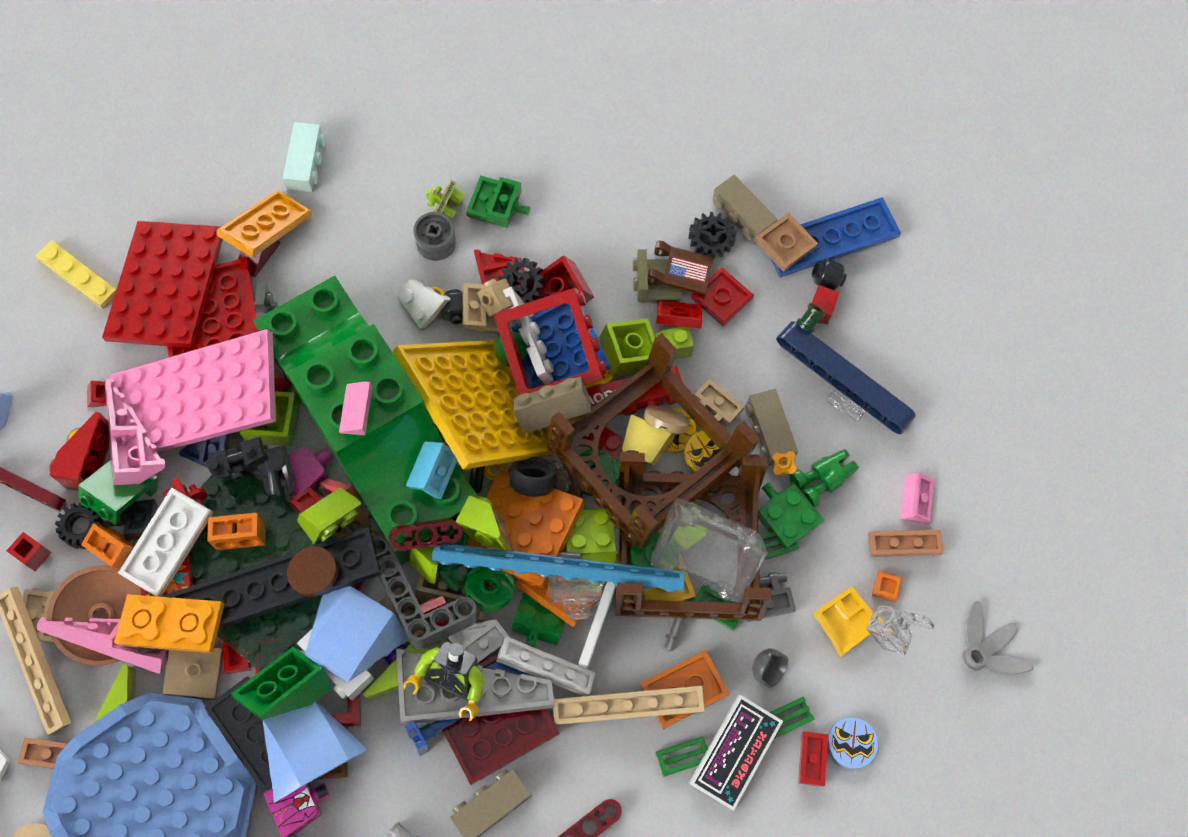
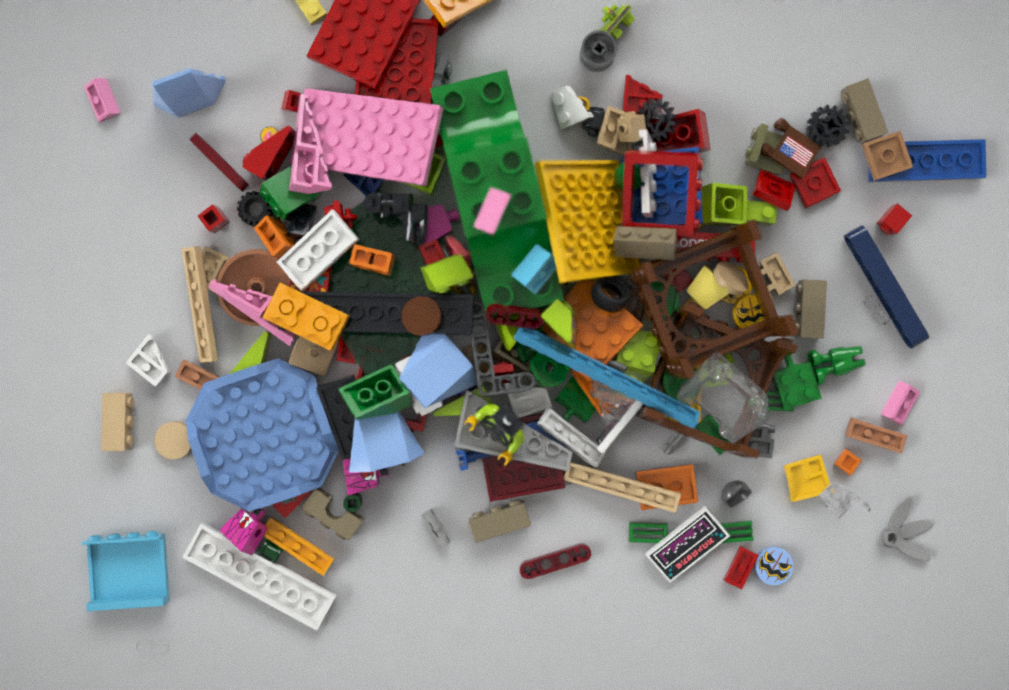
camera: 25 degrees right, 20 degrees up
(496, 201) = (659, 34): green plate -> none
(789, 468) = (814, 344): light orange plate -> none
(808, 325) = (880, 230): dark green bush -> none
(829, 274) = (910, 194): black head -> none

